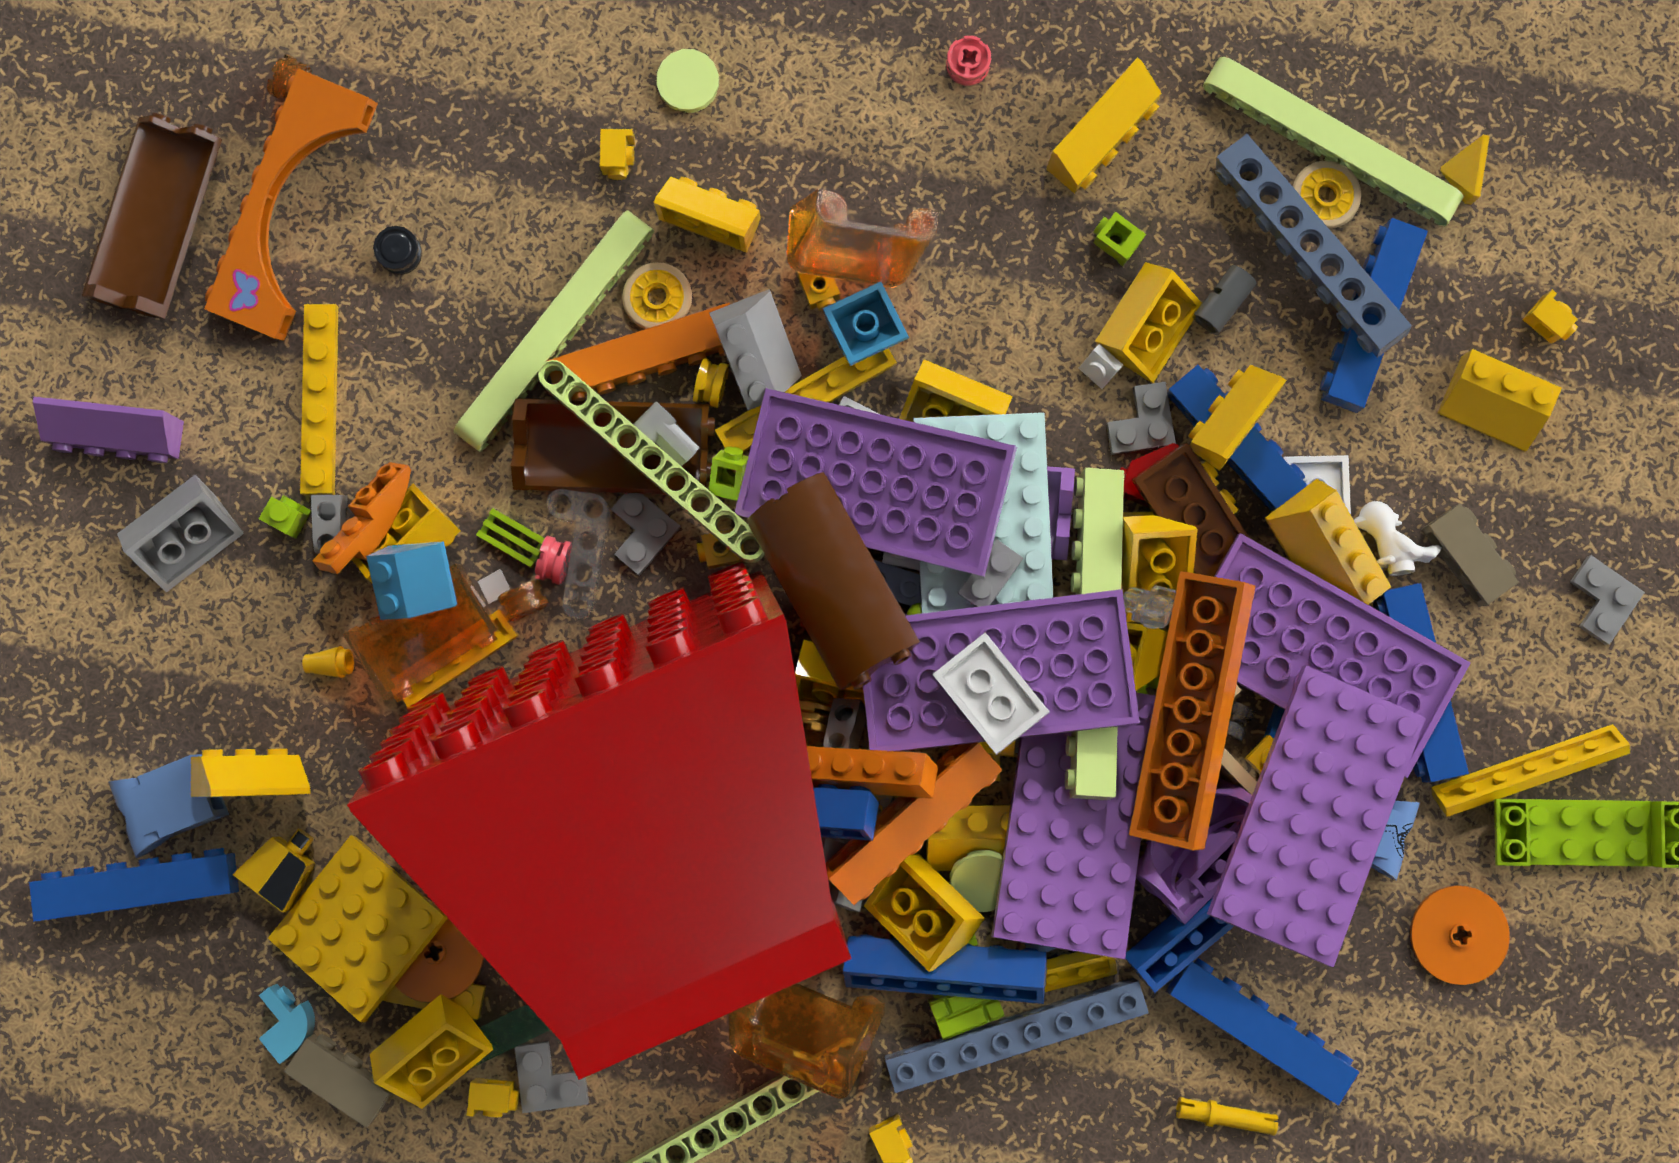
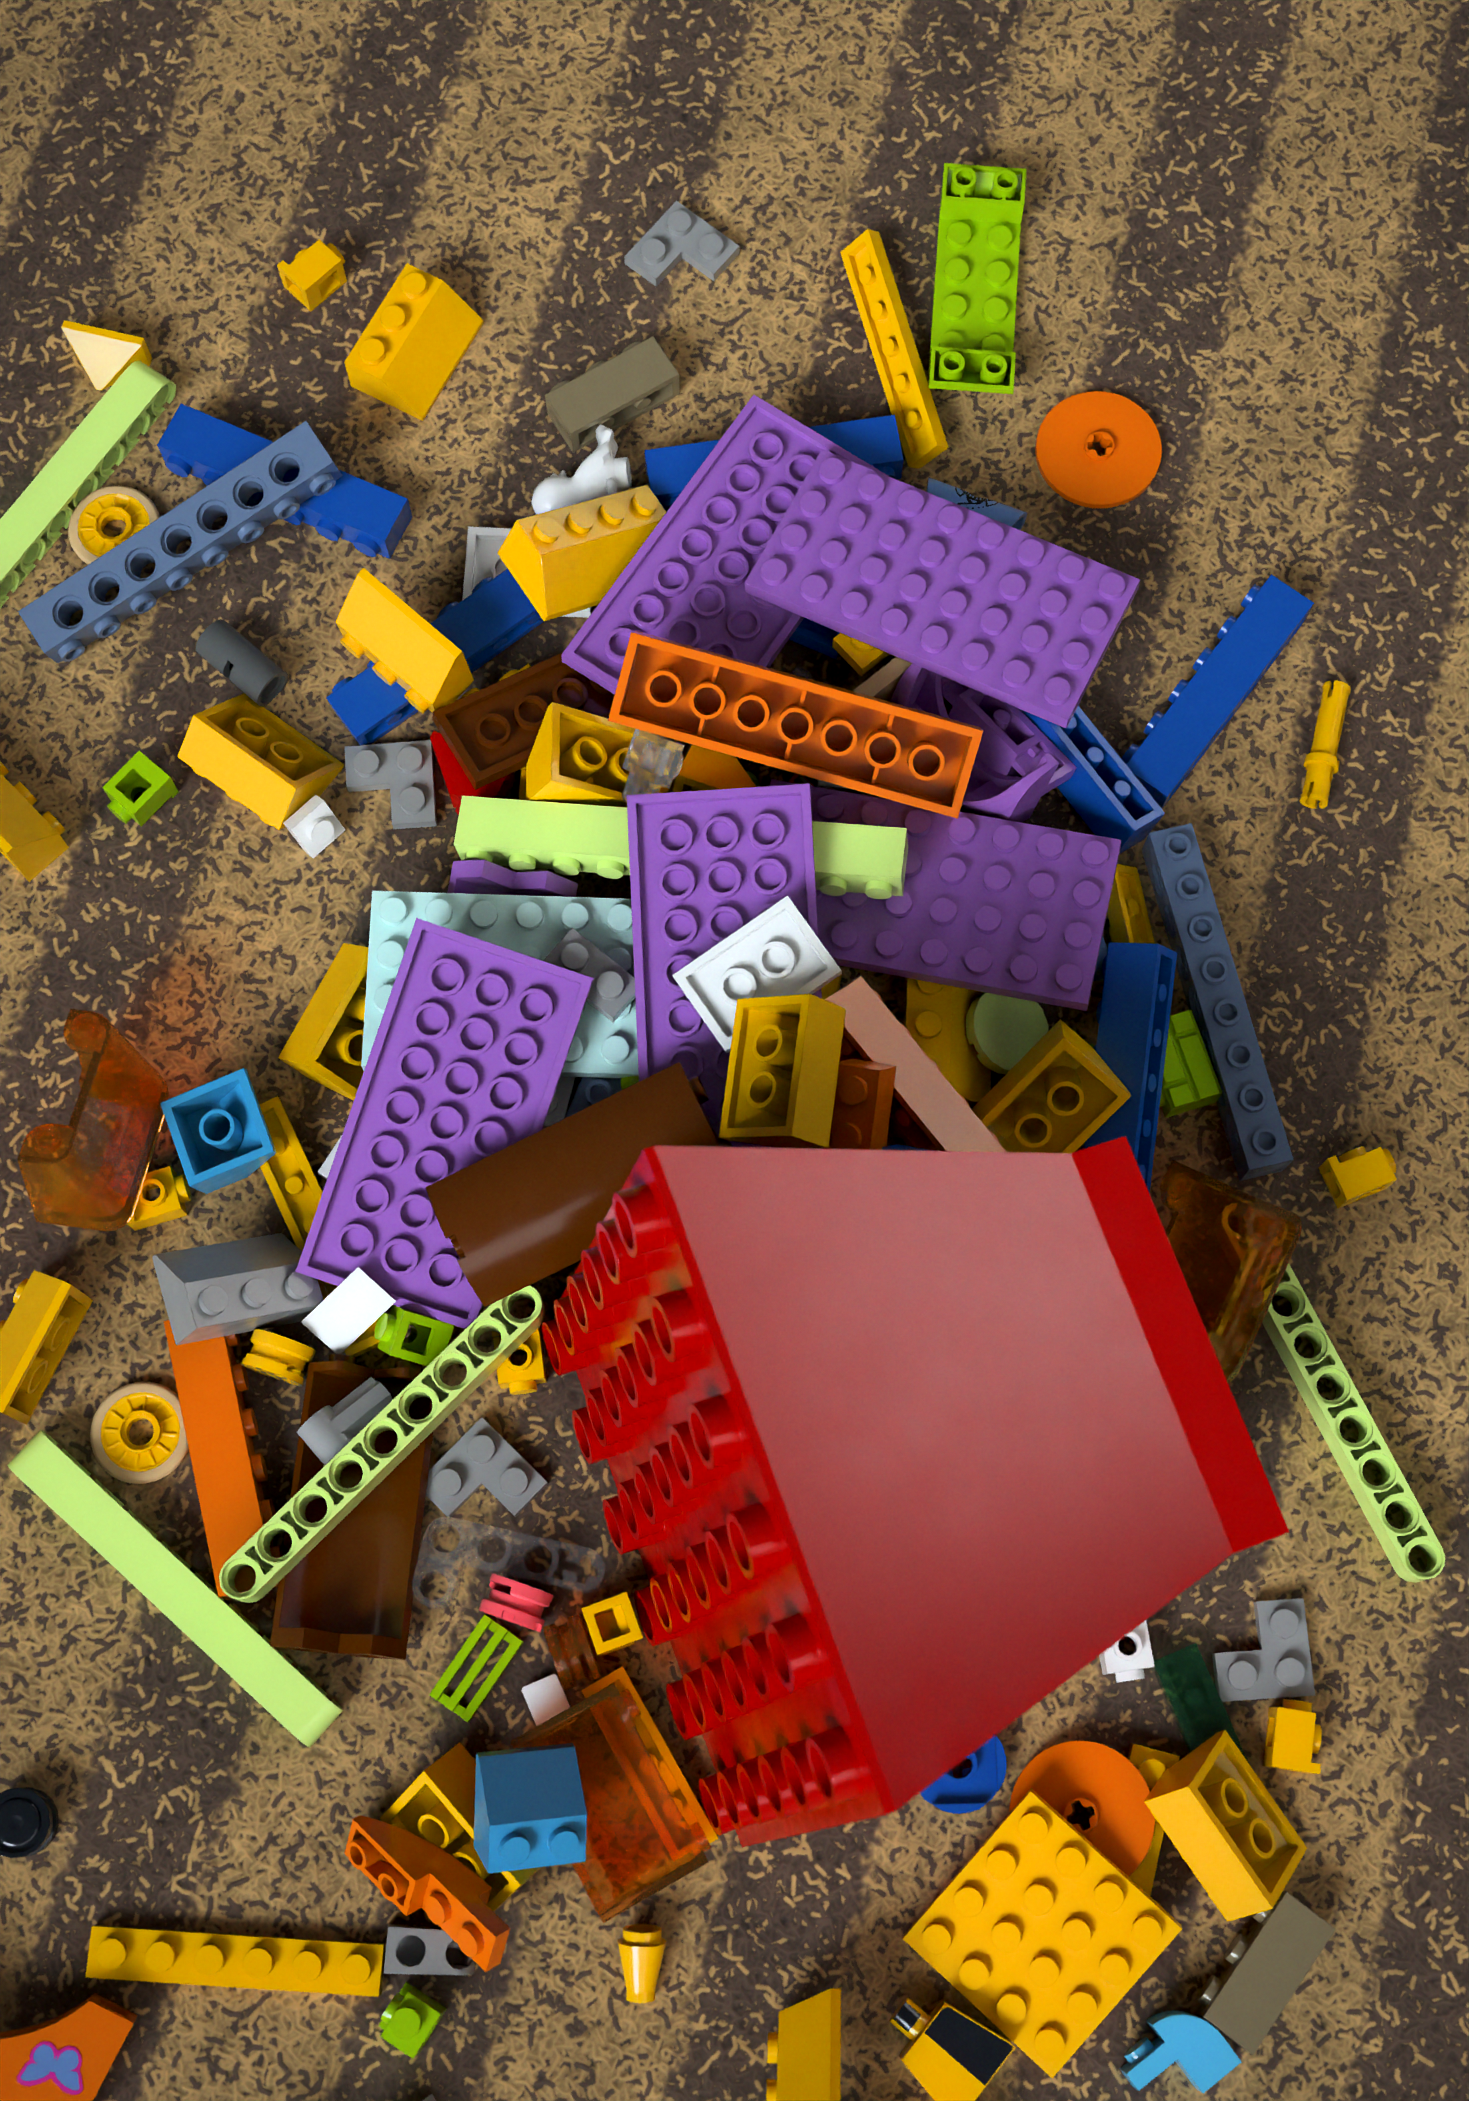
camera: 85 degrees left, 10 degrees down
(541, 626) = (612, 1624): none -> yellow brick
(742, 427) = (348, 1311): none -> white sticker
(914, 715) = (783, 1071): none -> yellow slope

